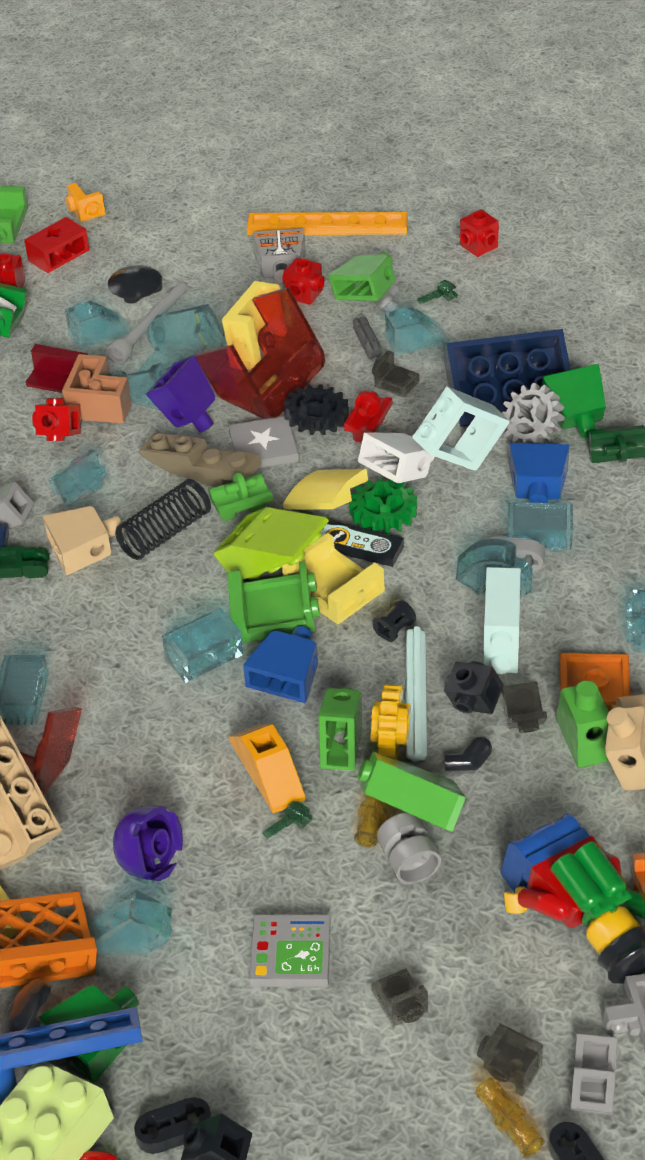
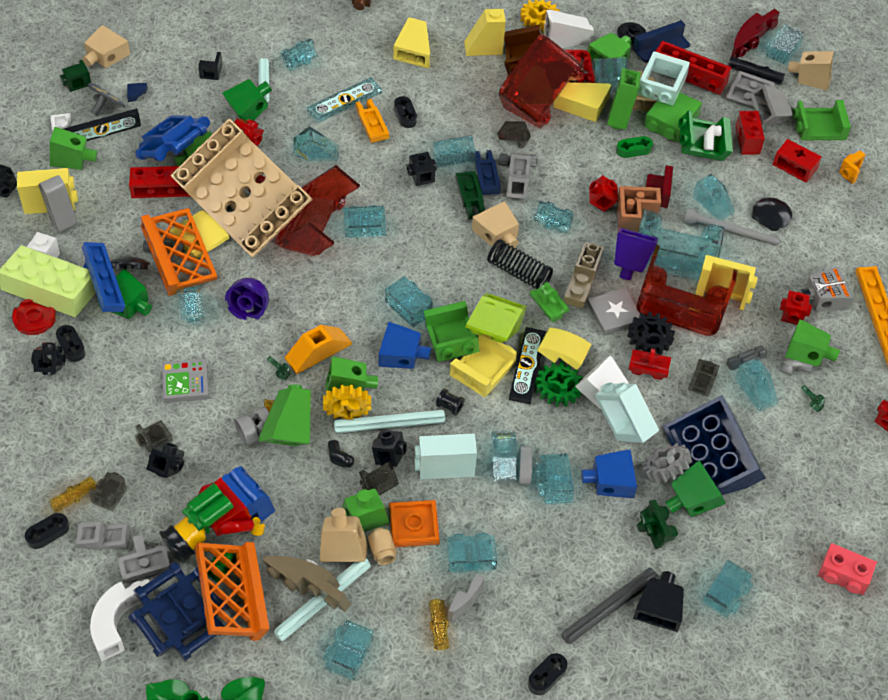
camera: 75 degrees right, 10 degrees up
(464, 968) = (165, 460): none -> black brick

